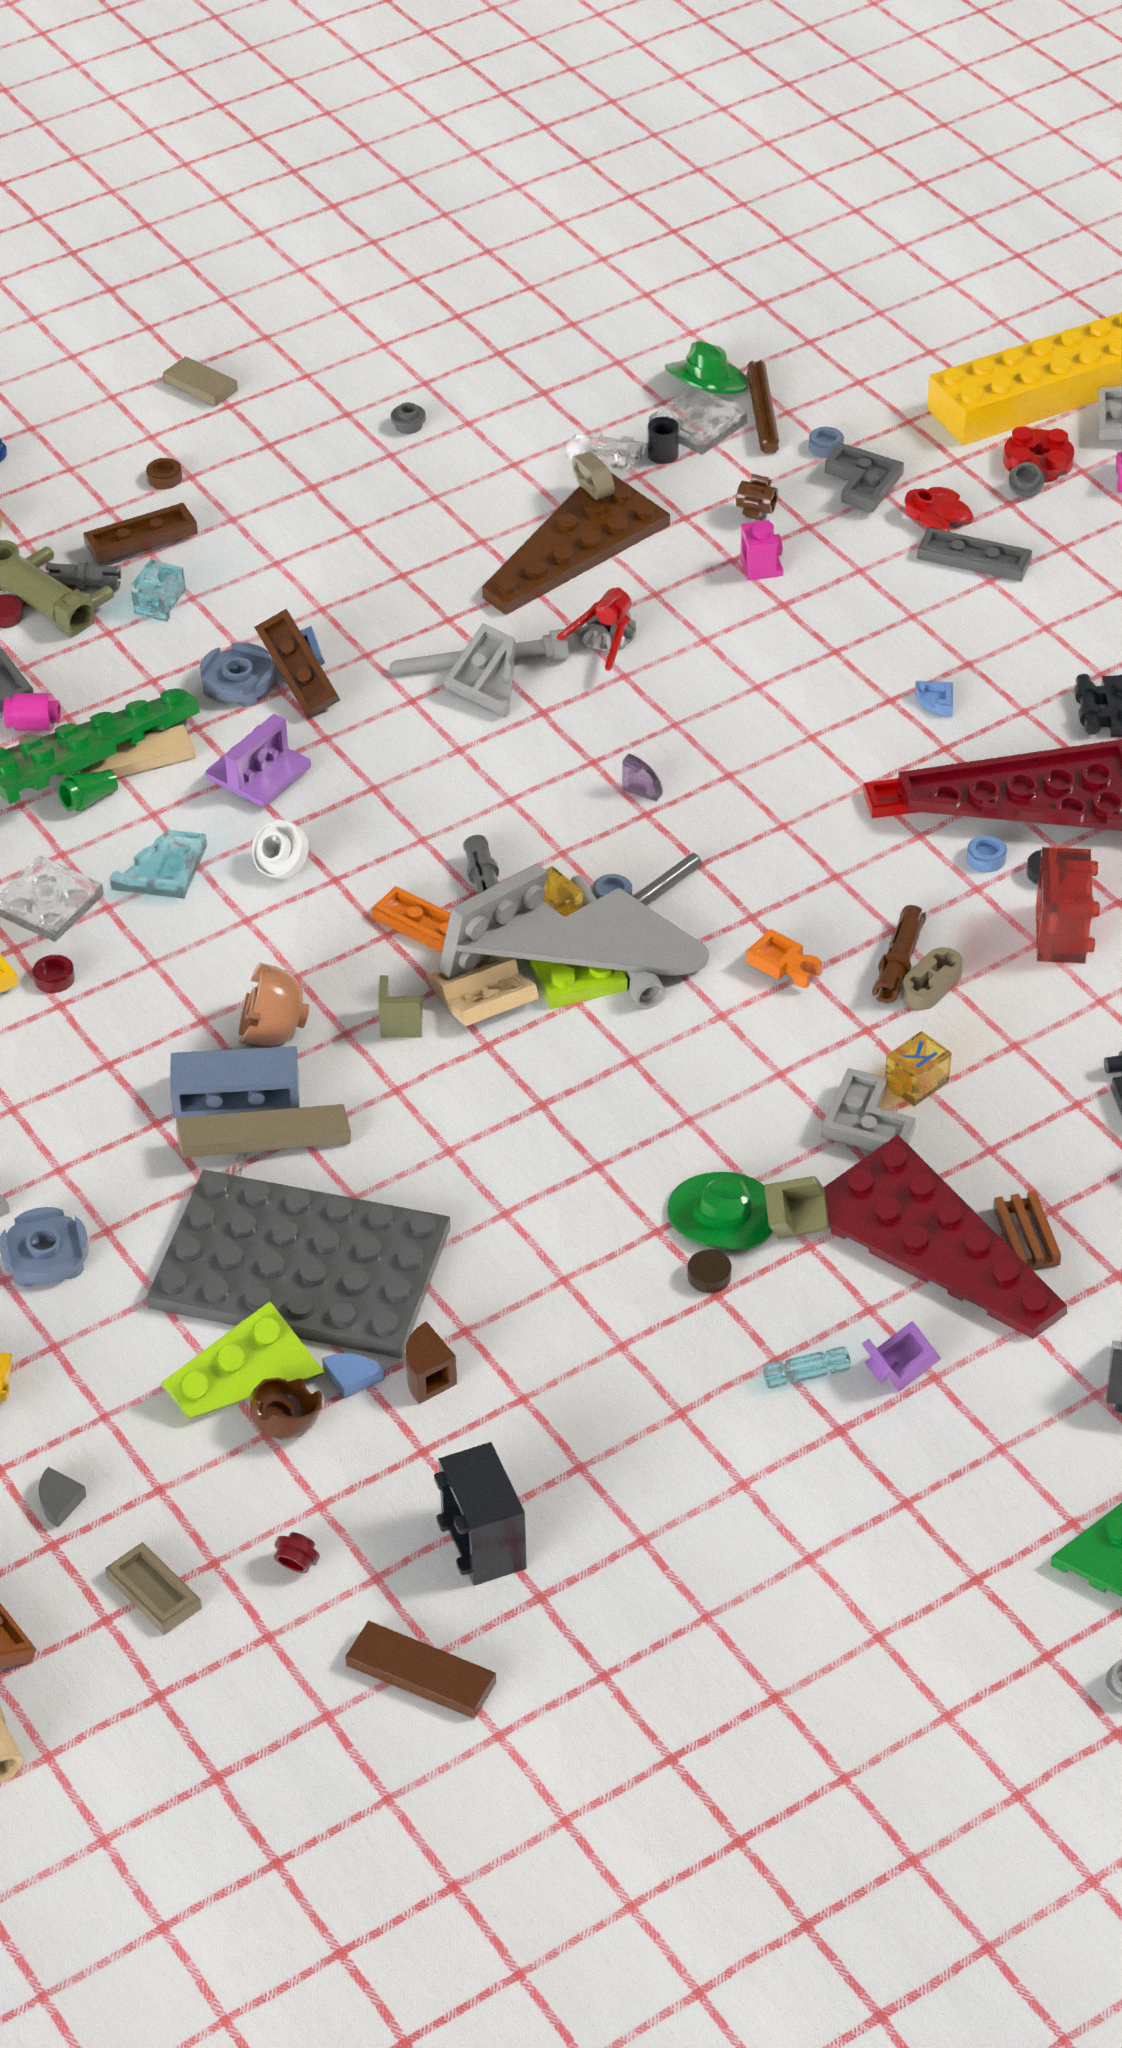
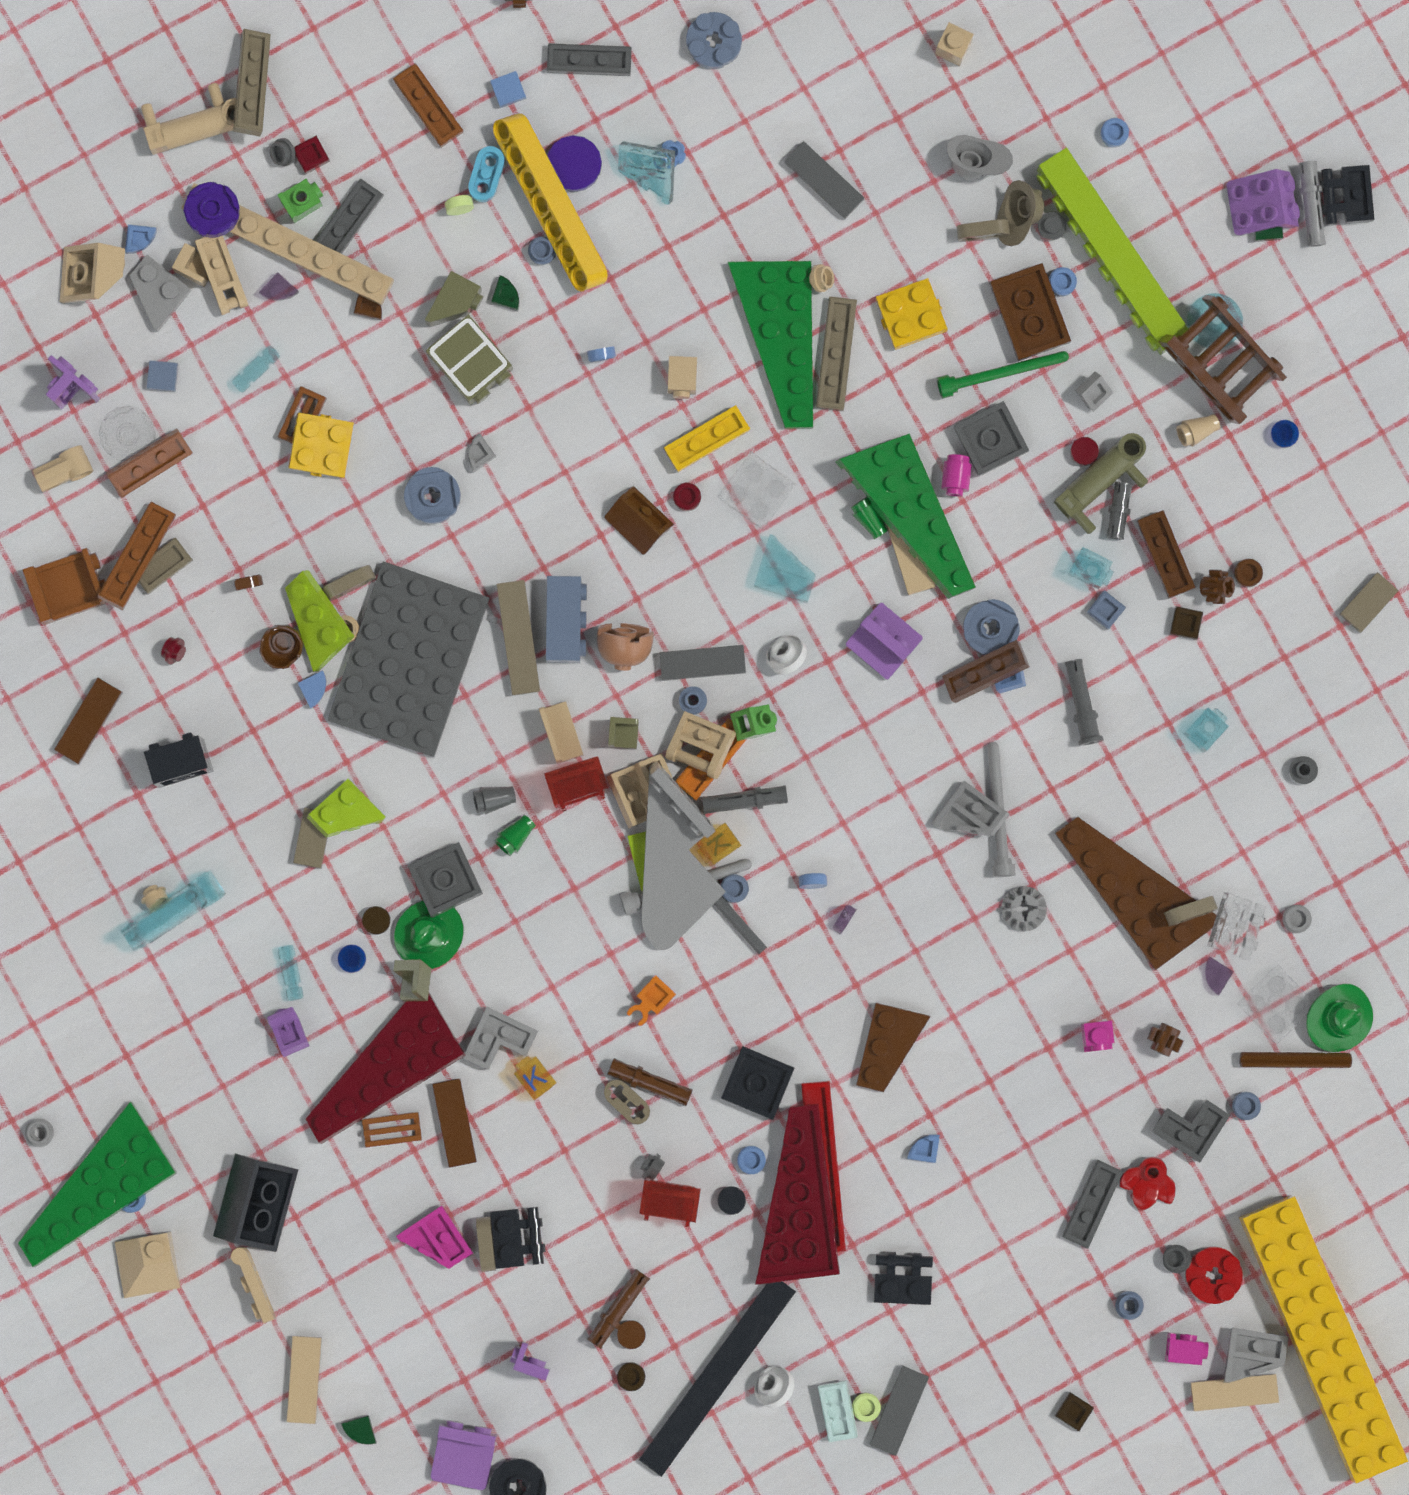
camera: 90 degrees right, 40 degrees up
(59, 1495) = (234, 508): dark grey tile -> none
(90, 1017) = (638, 520): none -> reddish brown panel
(137, 1607) = (136, 556): none -> dark orange tile
(179, 1330) = (349, 582): none -> dark tan beam
(181, 1464) = (248, 582): none -> reddish brown tile
(182, 485) = (1217, 586): none -> reddish brown gear
(188, 1712) = (65, 586): none -> dark orange panel
(212, 583) = (1106, 610): none -> sand blue tile
(228, 518) = (1186, 623): none -> dark brown tile
(295, 938) = (702, 662): none -> dark grey tile
(349, 947) = (699, 707): none -> sand blue plate
(350, 587) = (1085, 715): none -> dark grey pin
(363, 489) = (1199, 736): none -> clear light blue brick
(377, 870) = (761, 722): none -> bright green brick
(400, 919) = (704, 736): none -> tan plate
(405, 1081) = (561, 732): none -> tan panel
(429, 1364) = (309, 735): reddish brown brick -> none
(478, 1037) = (576, 783): none -> clear red container
(509, 1146) = (493, 798): none -> dark grey cone
(542, 1314) = (344, 811): none -> lime wing
(564, 1118) = (514, 836): none -> green cone
(589, 1357) = (310, 844): none -> dark tan tile
(591, 416) = (1296, 918): none -> light grey tile
(593, 810) = (813, 881): none -> medium blue tile
(609, 610) = (1021, 912): red plant -> none
(637, 1187) = (445, 879): none -> dark grey plate
(663, 440) = (1238, 973): black beam -> none
(669, 472) = (1217, 975): none -> clear purple tile
(709, 1549) = (153, 896): none -> tan plate
(764, 1550) = (173, 911): none -> clear light blue piece
(773, 1293) = (351, 958): none -> clear blue plate
(801, 736) = (887, 1044): none -> reddish brown wing
(879, 848) = (757, 1083): none -> black plate
(1002, 1160) = (454, 1123): none -> reddish brown tile
(1019, 940) = (652, 1166): none -> dark grey plate
(1094, 514) = (1138, 1305): none -> sand blue plate

